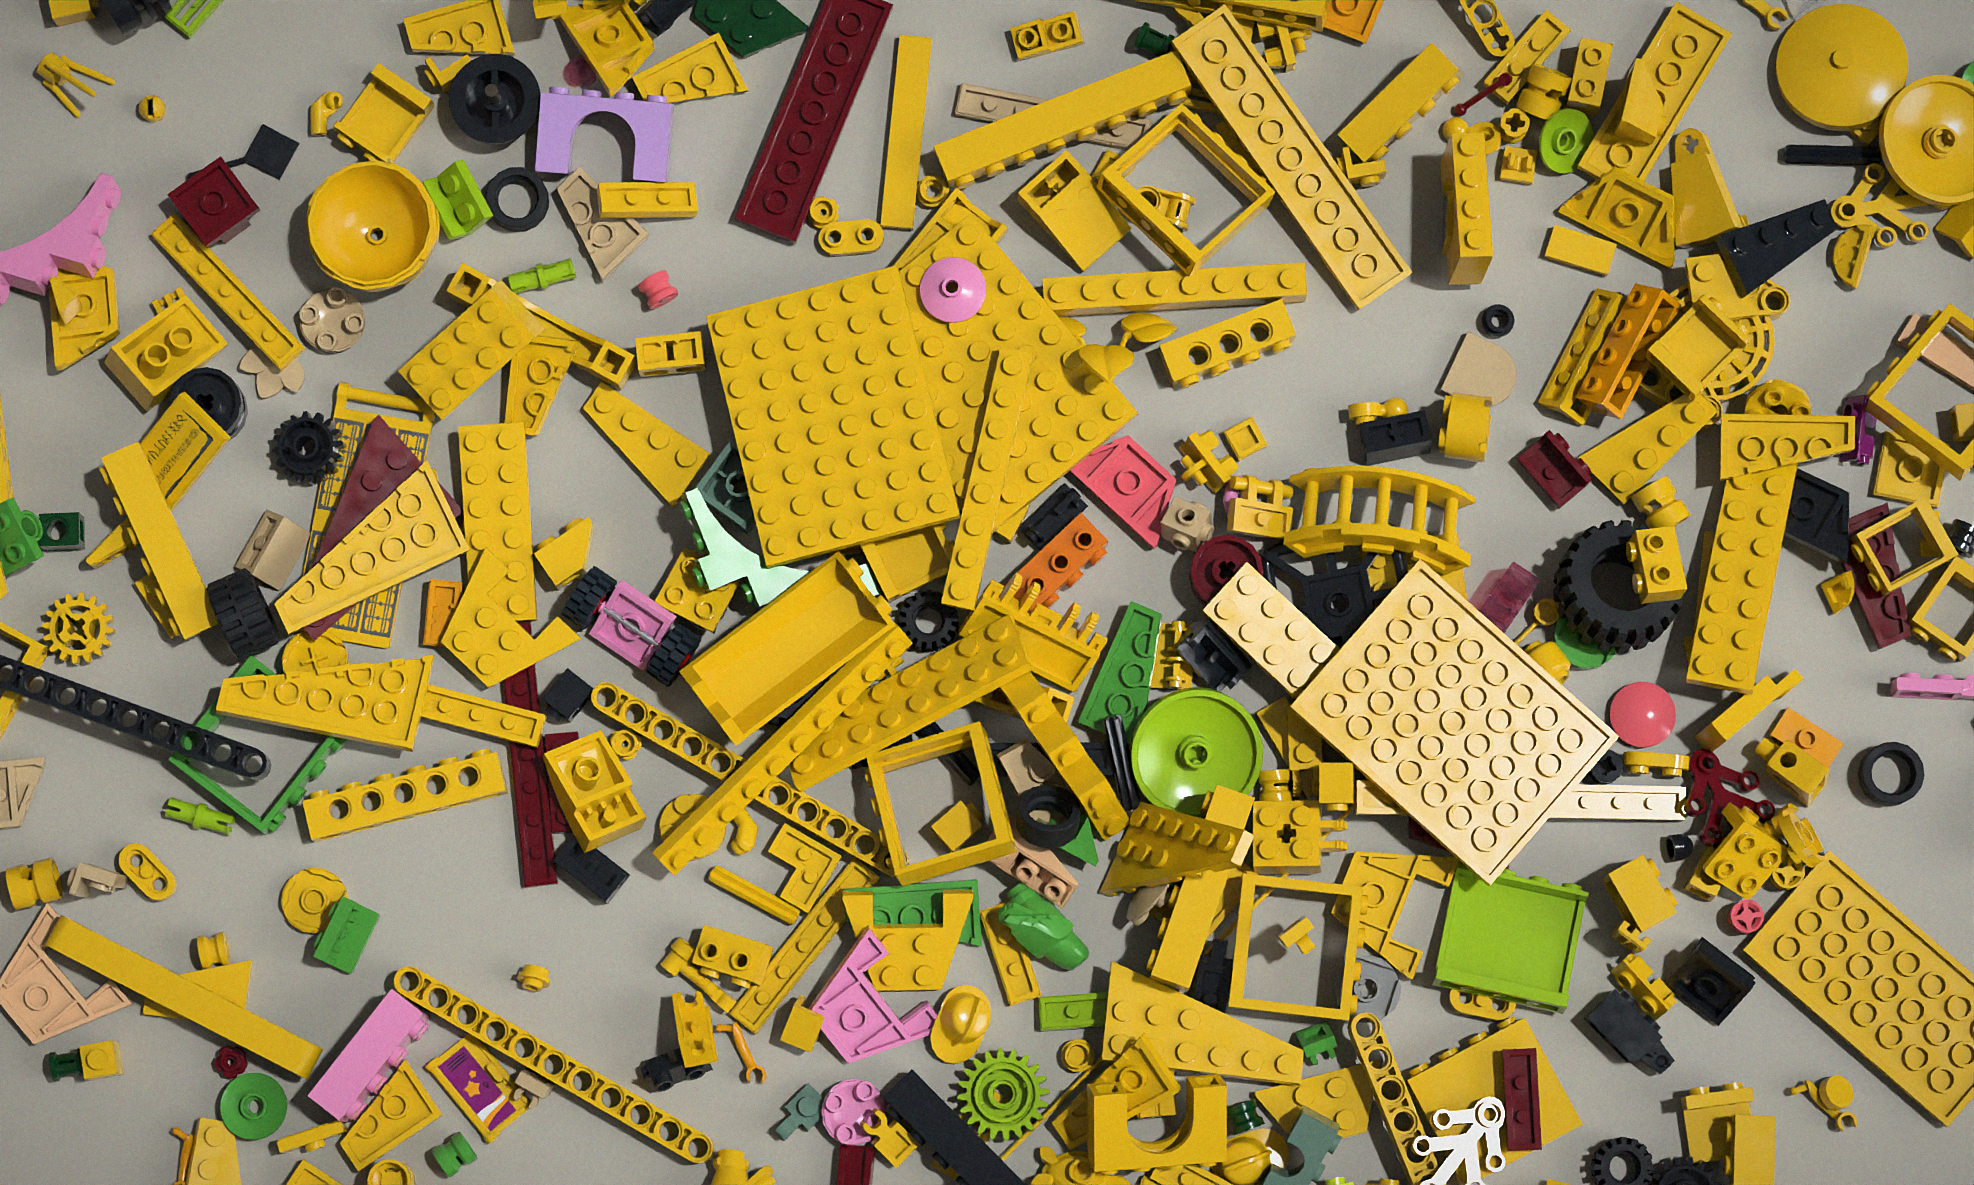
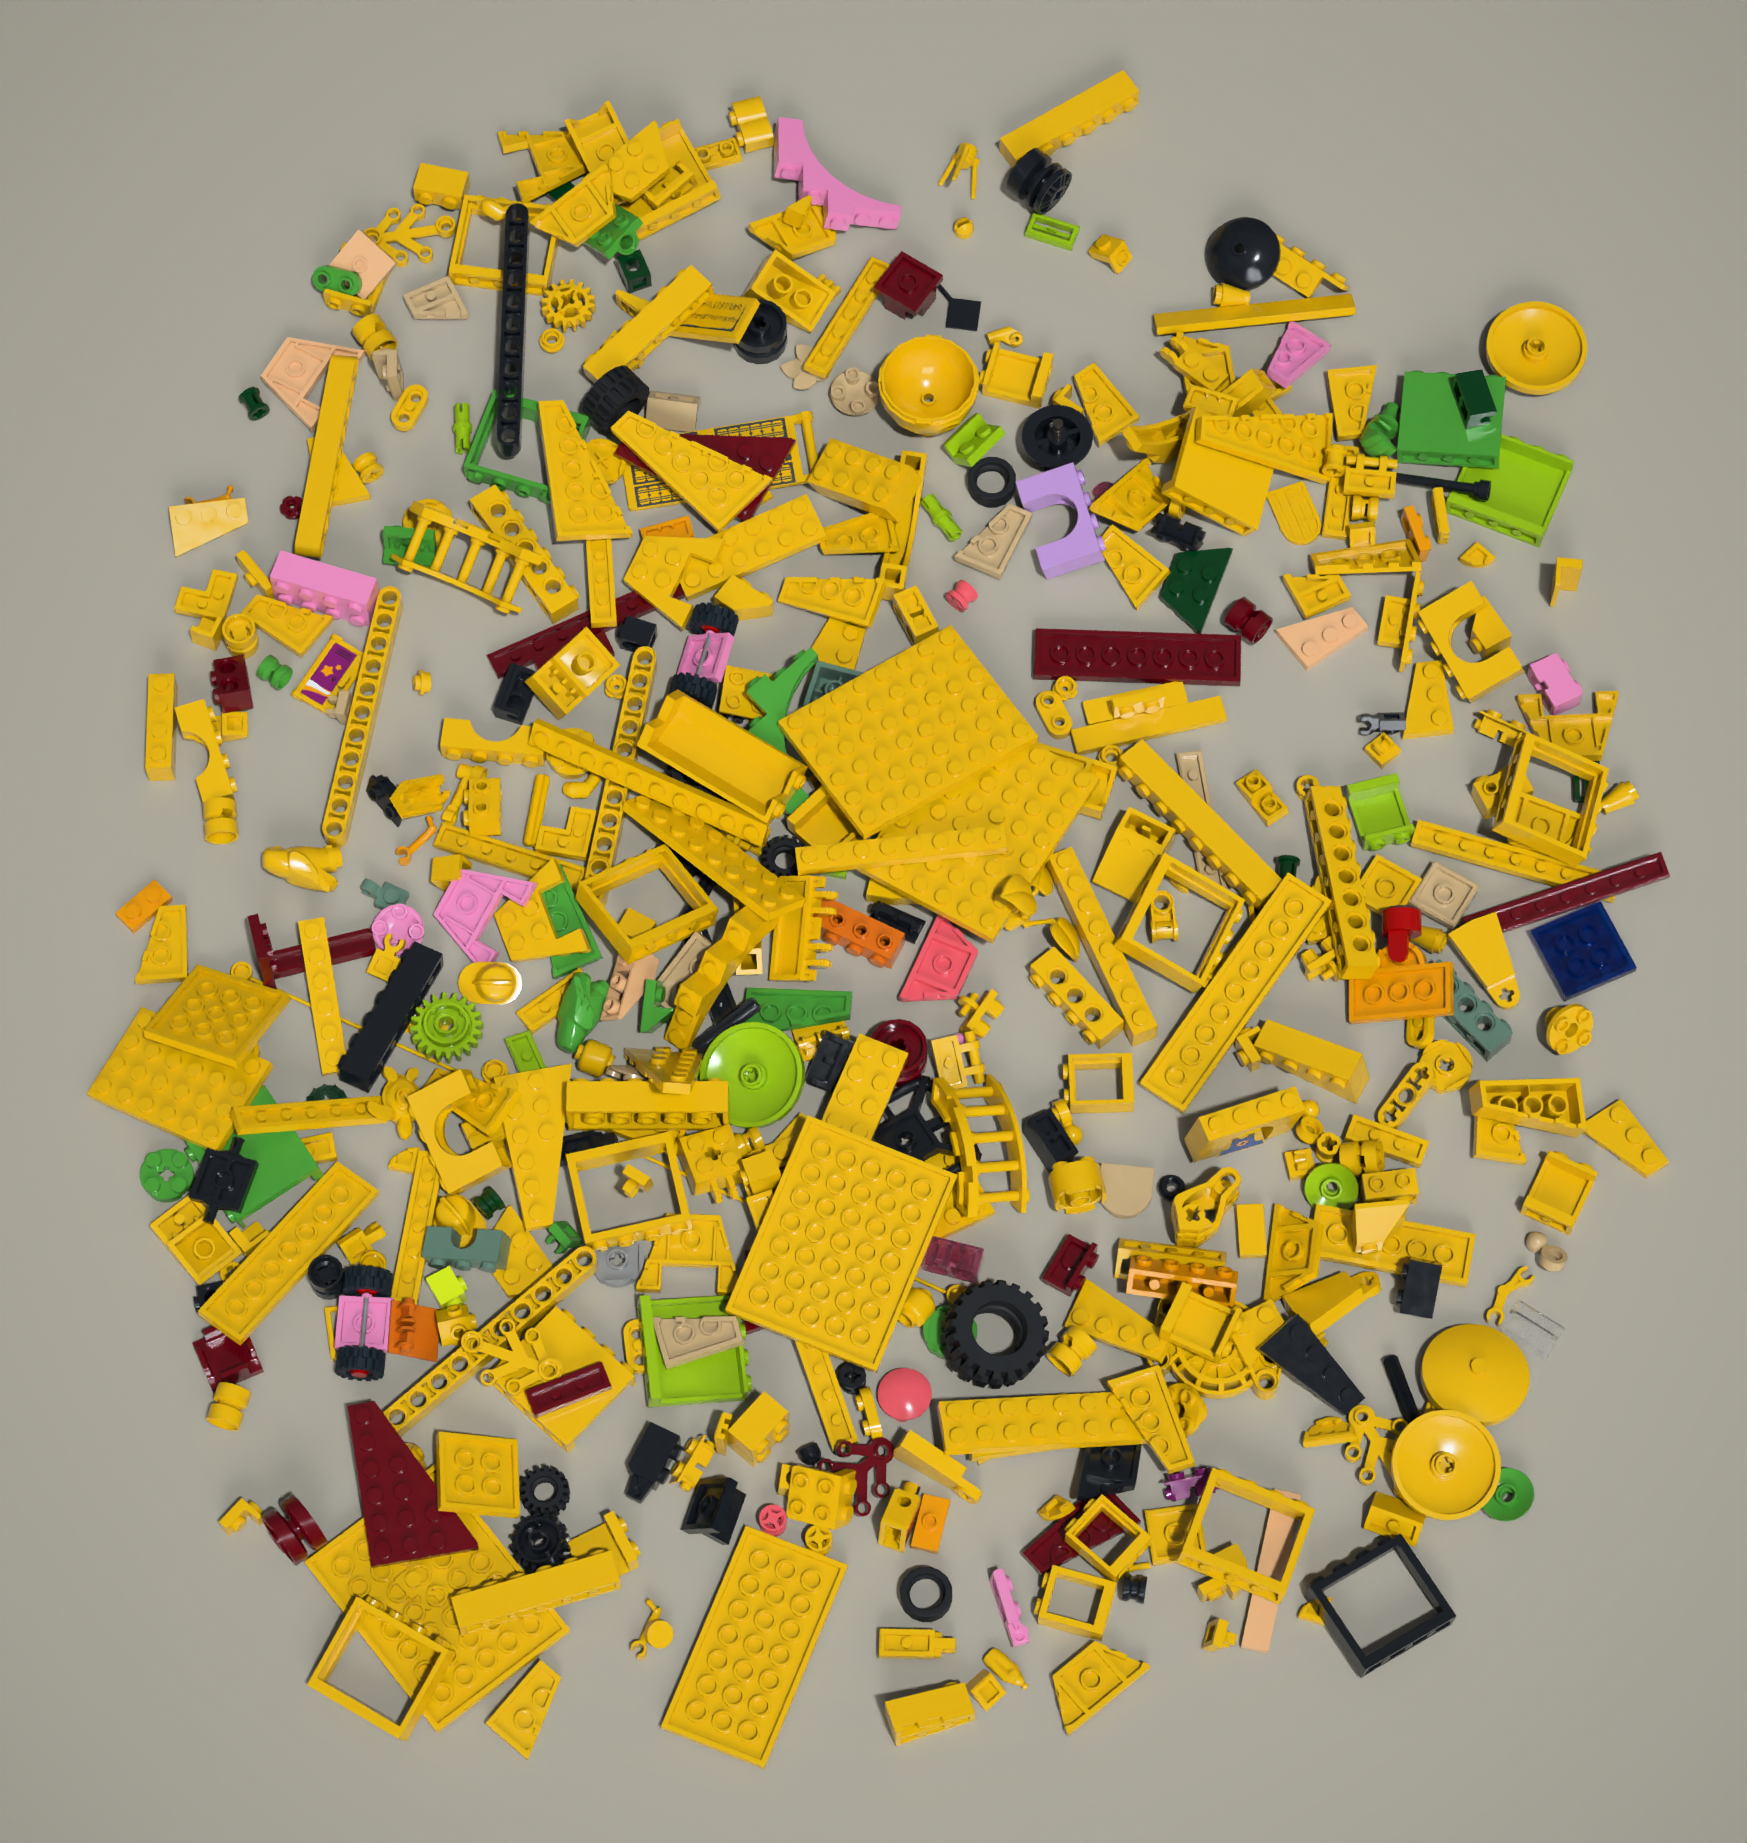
camera: 70 degrees right, 15 degrees down
(101, 1060) = (263, 422): yellow brick -> none
(109, 661) = (552, 334): none -> yellow plate
(237, 1100) = (260, 521): bright green dish -> none
(321, 459) = (743, 409): black gear -> none
(372, 844) = (478, 538): none -> yellow fence
(614, 435) = (837, 598): none -> yellow wing
(630, 955) = (463, 742): none -> yellow arch
(646, 199) = (1024, 564): yellow plate -> none
(872, 137) = (1134, 702): none -> yellow bracket
(958, 305) = (1035, 791): bright pink dish -> none
(1050, 798) = (649, 984): black tyre -> none
(1105, 931) = (594, 1058): none -> yellow head
(1187, 524) = (926, 1011): tan brick -> none
(1245, 439) = (1009, 1037): yellow tile -> none
(1354, 324) = (1100, 1061): none -> yellow window
(1503, 932) = (693, 1339): none -> tan wing
(1504, 79) = (1359, 1125): dark red hinge -> none
(1534, 284) = (1208, 1196): none -> yellow piece
(1656, 565) = (1016, 1344): yellow brick -> none
(1722, 87) = (1419, 1288): none -> black brick
(1800, 835) = (848, 1534): yellow plate -> none
(1944, 808) = (914, 1644): none -> yellow hinge

